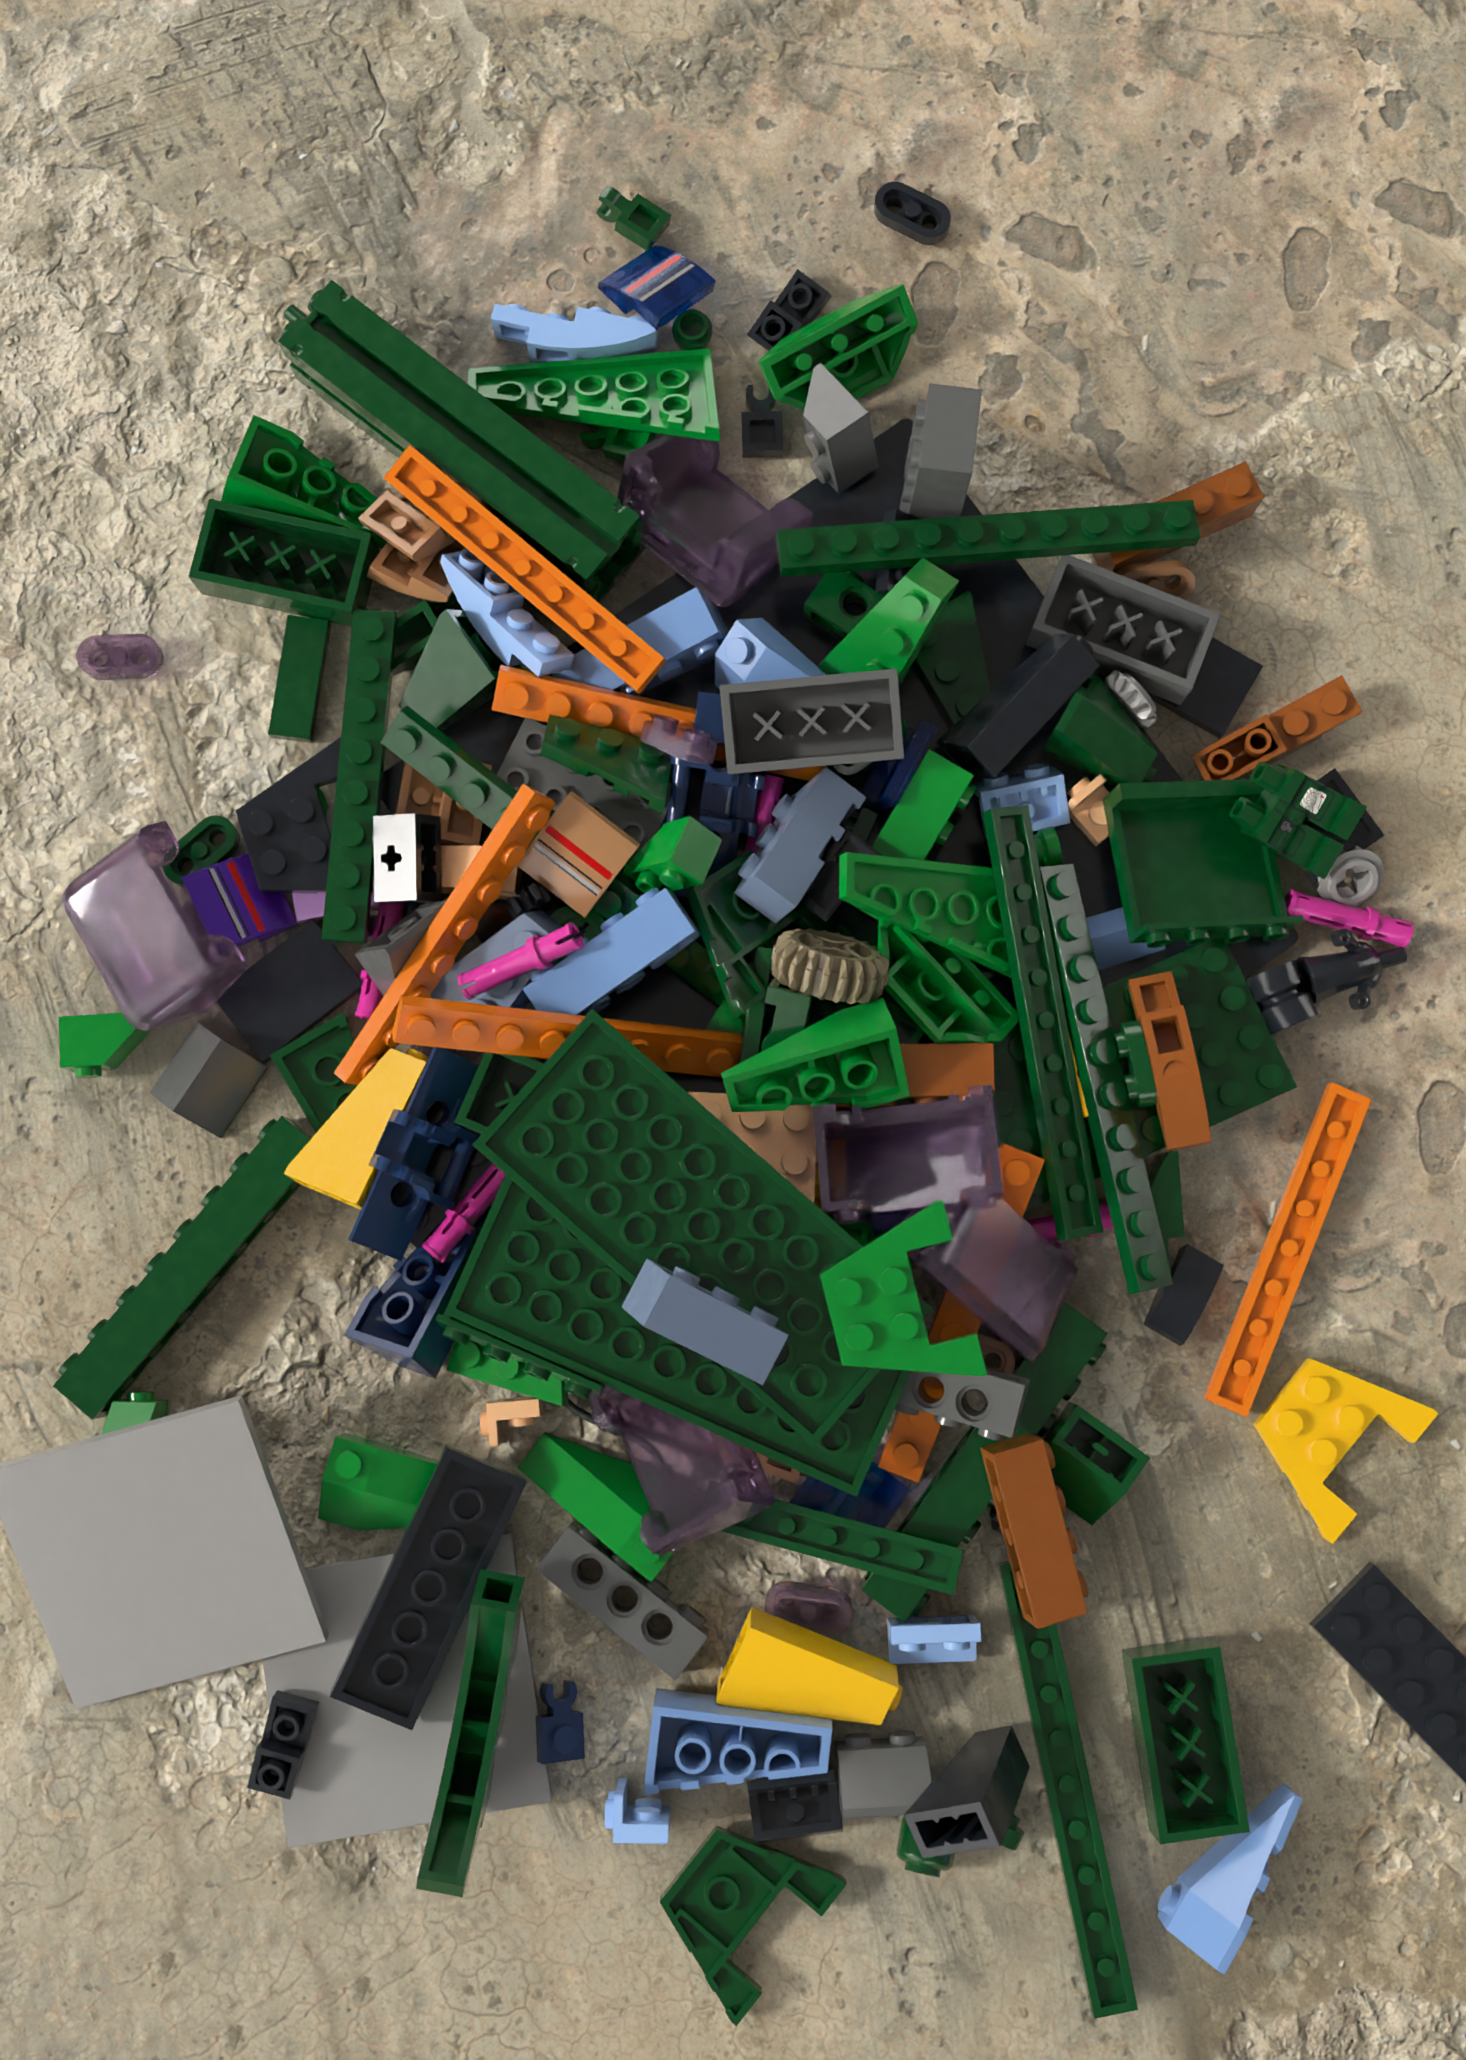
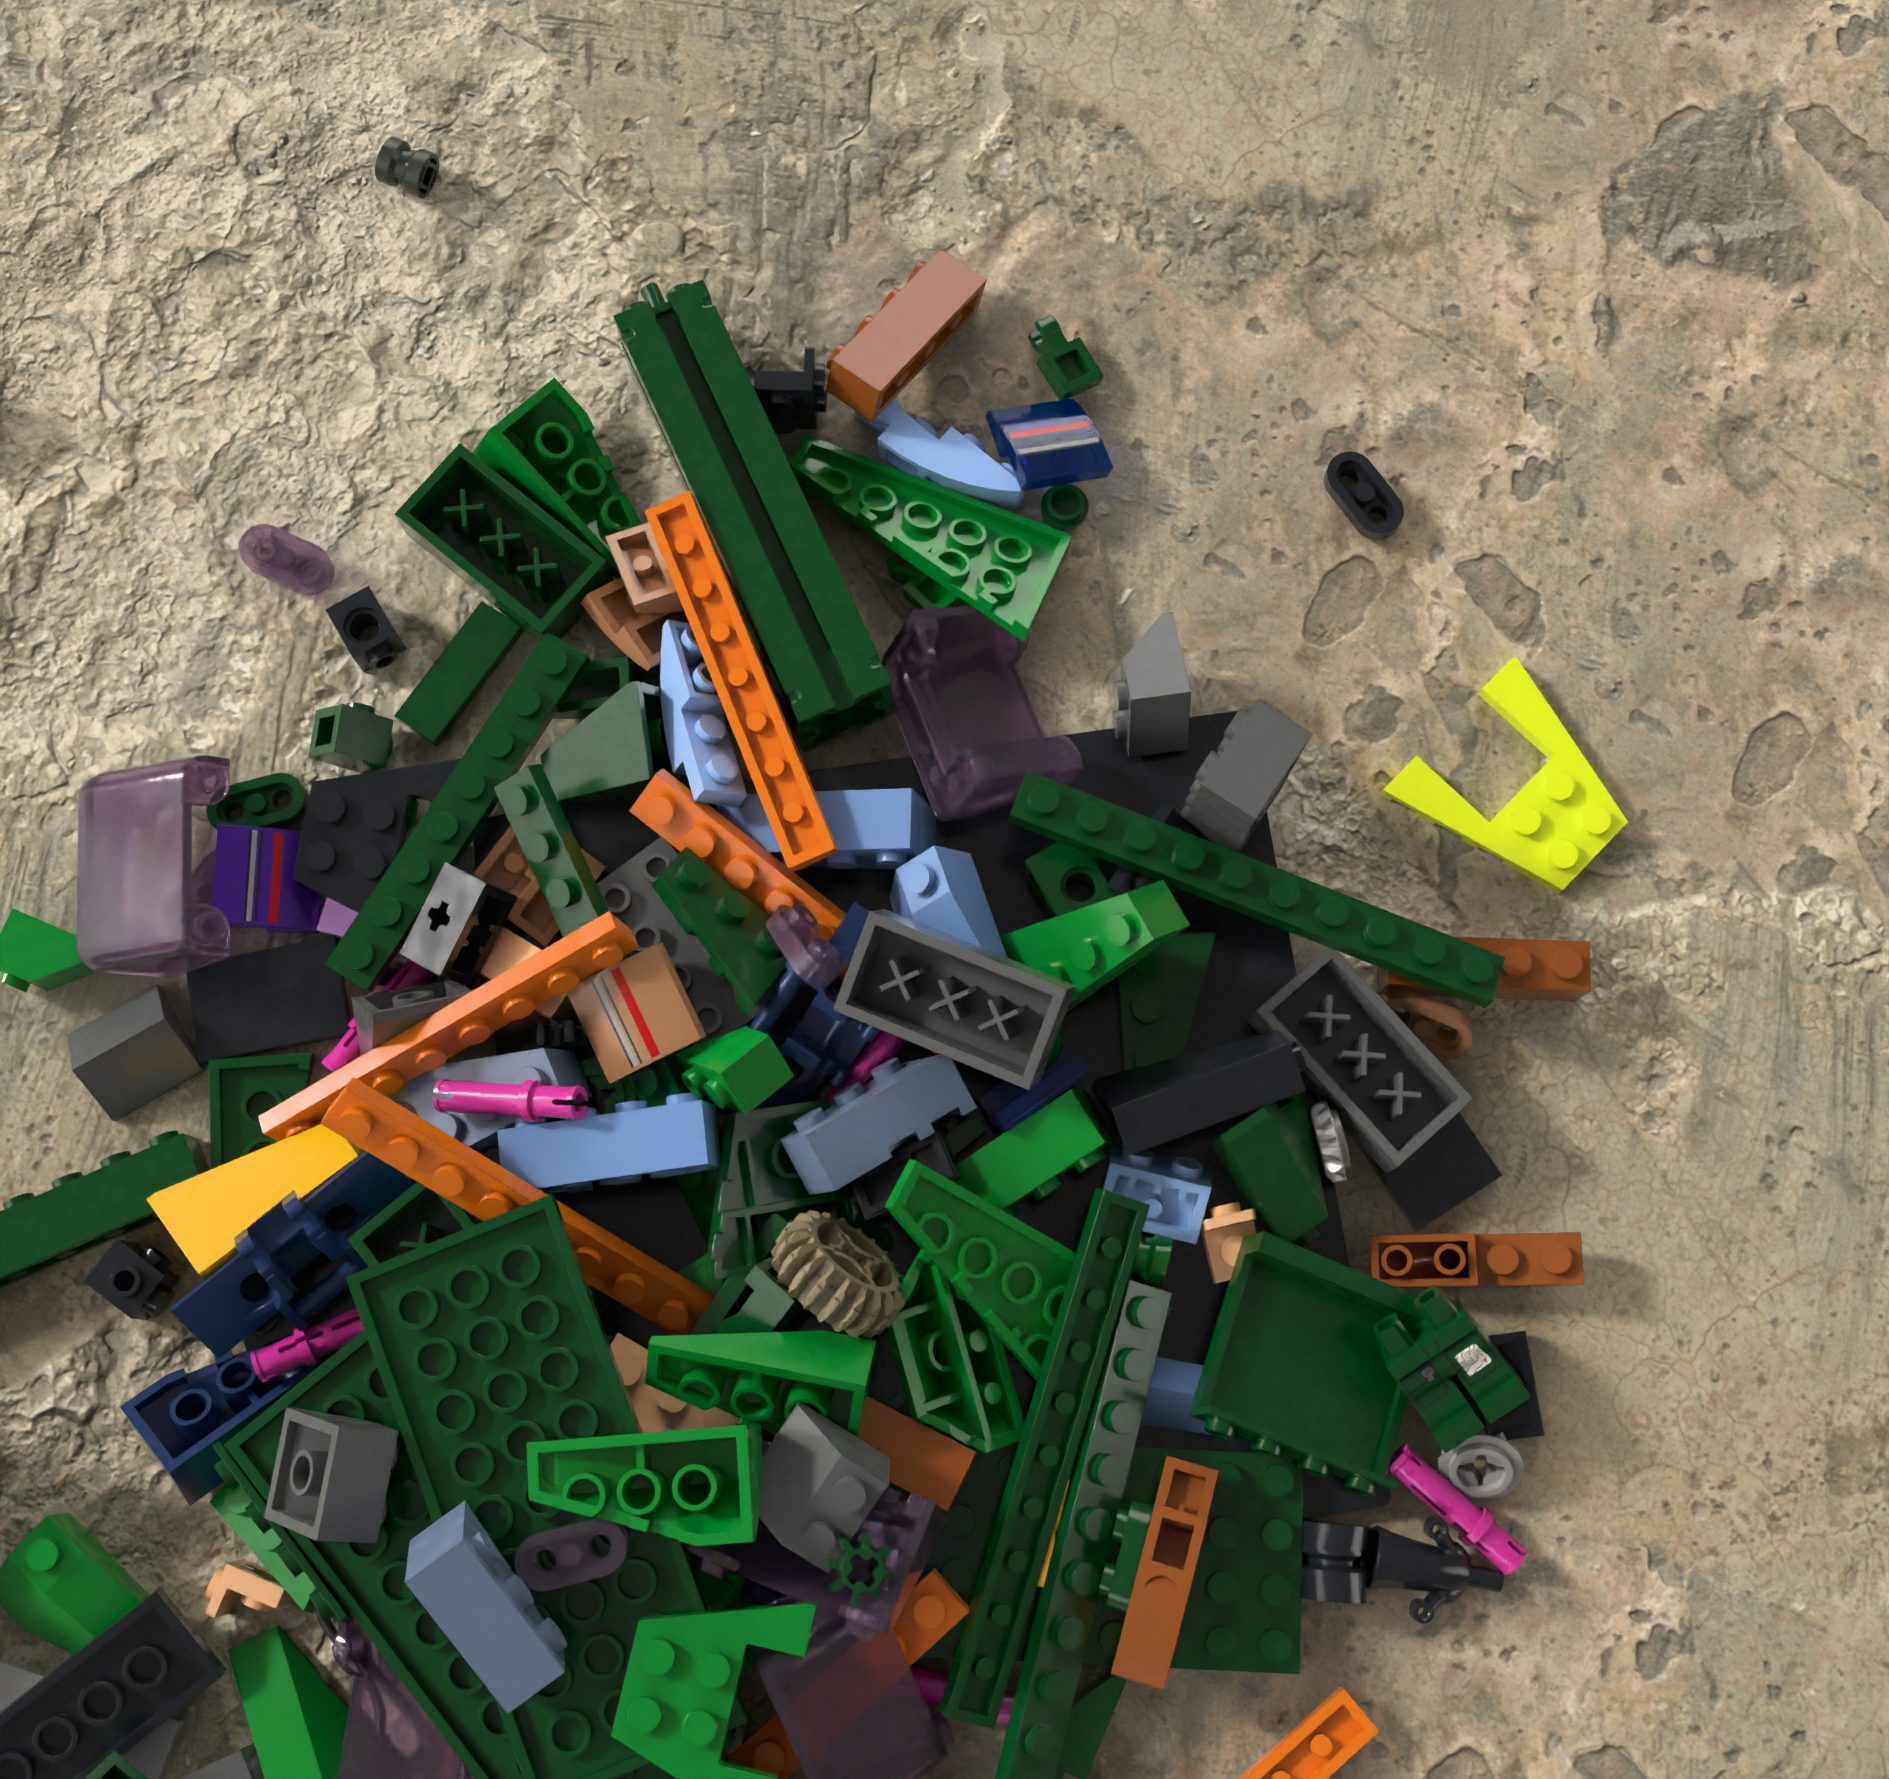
camera: 25 degrees right, 5 degrees down
(45, 309) = (407, 167): none -> pearl dark grey wheel
(200, 667) = (355, 615): none -> black brick
(246, 764) = (351, 737): none -> dark green brick
(302, 1241) = (134, 1279): none -> black brick
(446, 336) = (793, 397): none -> black bracket
(505, 252) = (904, 334): none -> brick
(538, 1291) = (331, 1476): none -> dark grey slope
(747, 1253) = (573, 1554): none -> clear purple plate
(761, 428) = (1084, 646): black plate -> none
(791, 1166) = (675, 1483): none -> green wedge
(792, 310) = (1176, 541): black slope -> none
(855, 343) = (1219, 606): green wedge -> none
(895, 1119) = (819, 1485): none -> dark grey slope
(949, 1159) = (875, 1570): none -> dark green gear
(1171, 391) = (1552, 822): none -> neon yellow wing

